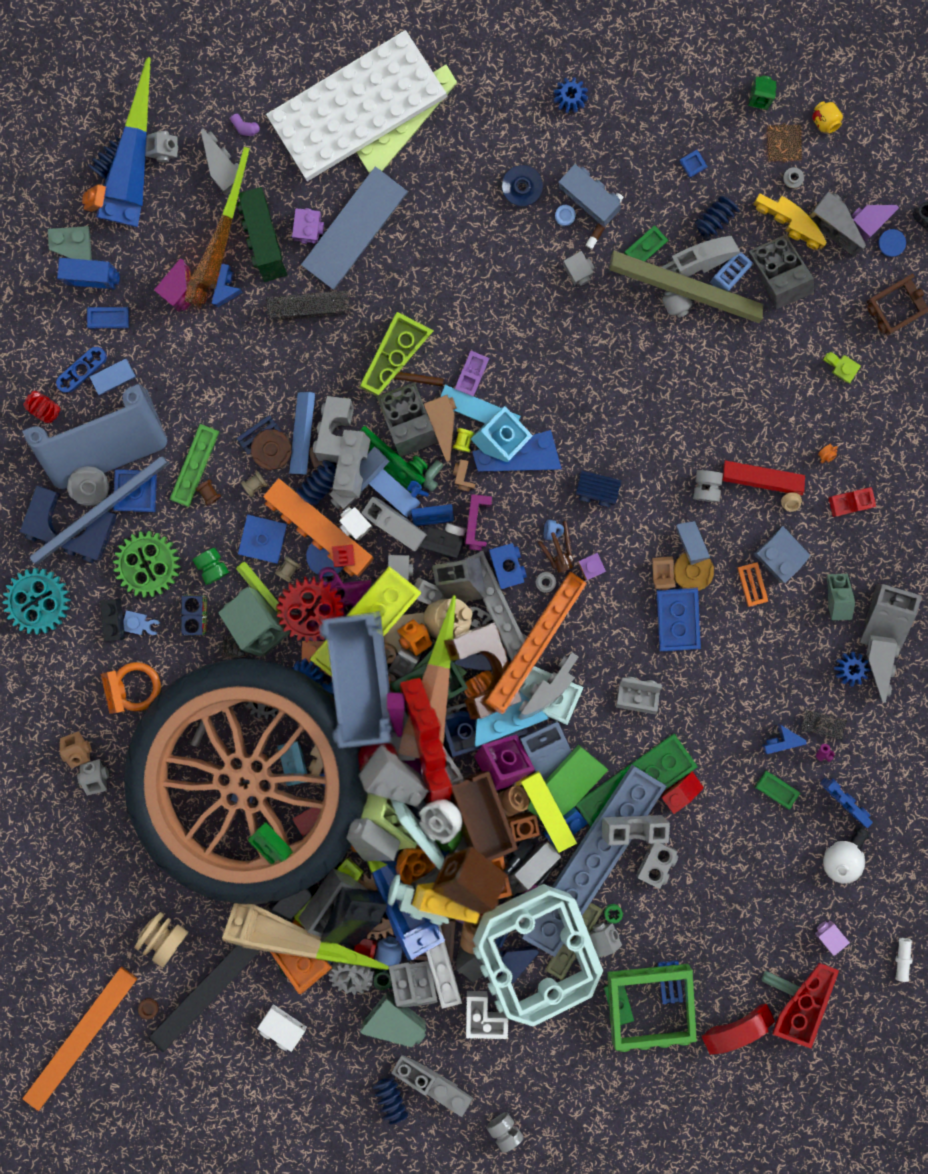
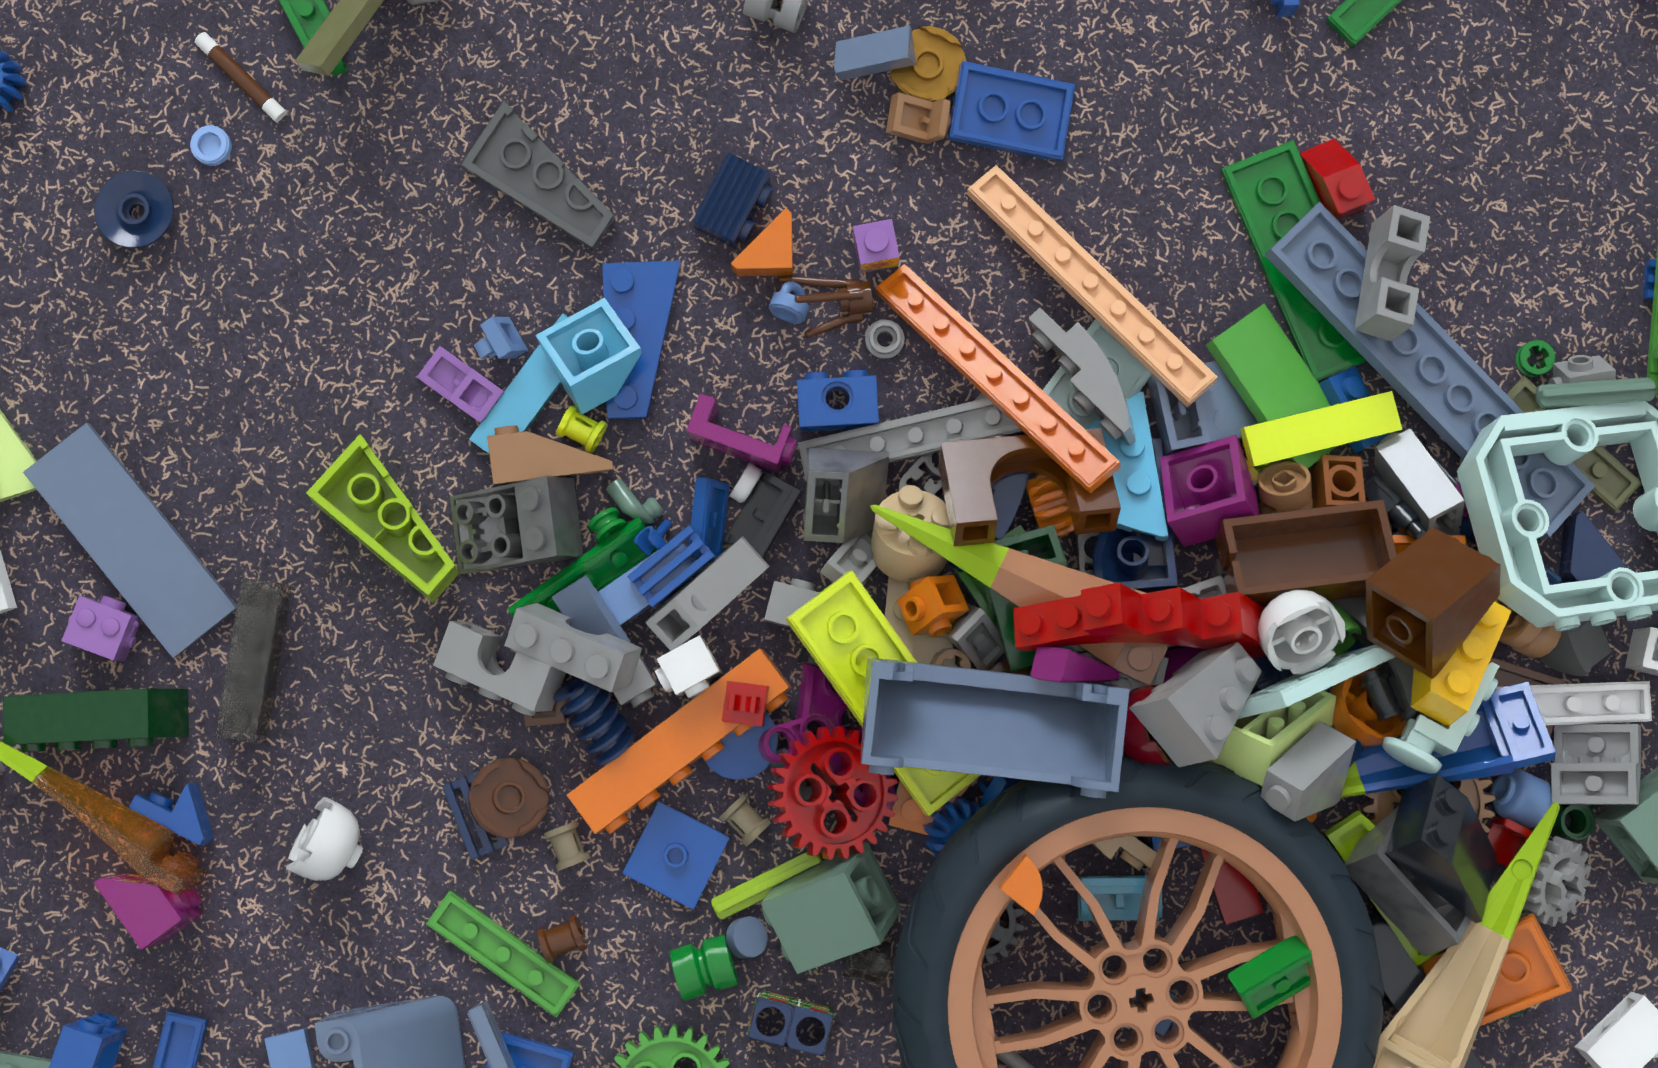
camera: 80 degrees left, 5 degrees down
(227, 365) = (326, 843): none -> white cylinder
(230, 583) = (746, 937): none -> sand blue tile
(284, 712) = (1024, 885): none -> orange tile
(302, 433) = (492, 731): medium blue tile -> none
(417, 513) = (645, 587): none -> blue tile
(419, 378) = (446, 485): reddish brown bar -> none
(421, 869) = (1380, 693): none -> black pin
(460, 472) = (639, 448): medium nougat bracket -> none
(499, 388) = (500, 340): none -> medium blue tile
(577, 514) = (769, 252): none -> orange slope
(579, 268) = (315, 141): light grey brick -> none
(587, 383) = (528, 172): none -> dark grey wing
(590, 195) = (184, 88): sand blue brick -> none
(596, 680) = (1092, 286): none -> light nougat tile
(599, 945) = (1595, 392): none -> sand green axle
(638, 695) = (1136, 216): light grey bracket -> none
(652, 862) = (1453, 264): light grey brick -> none

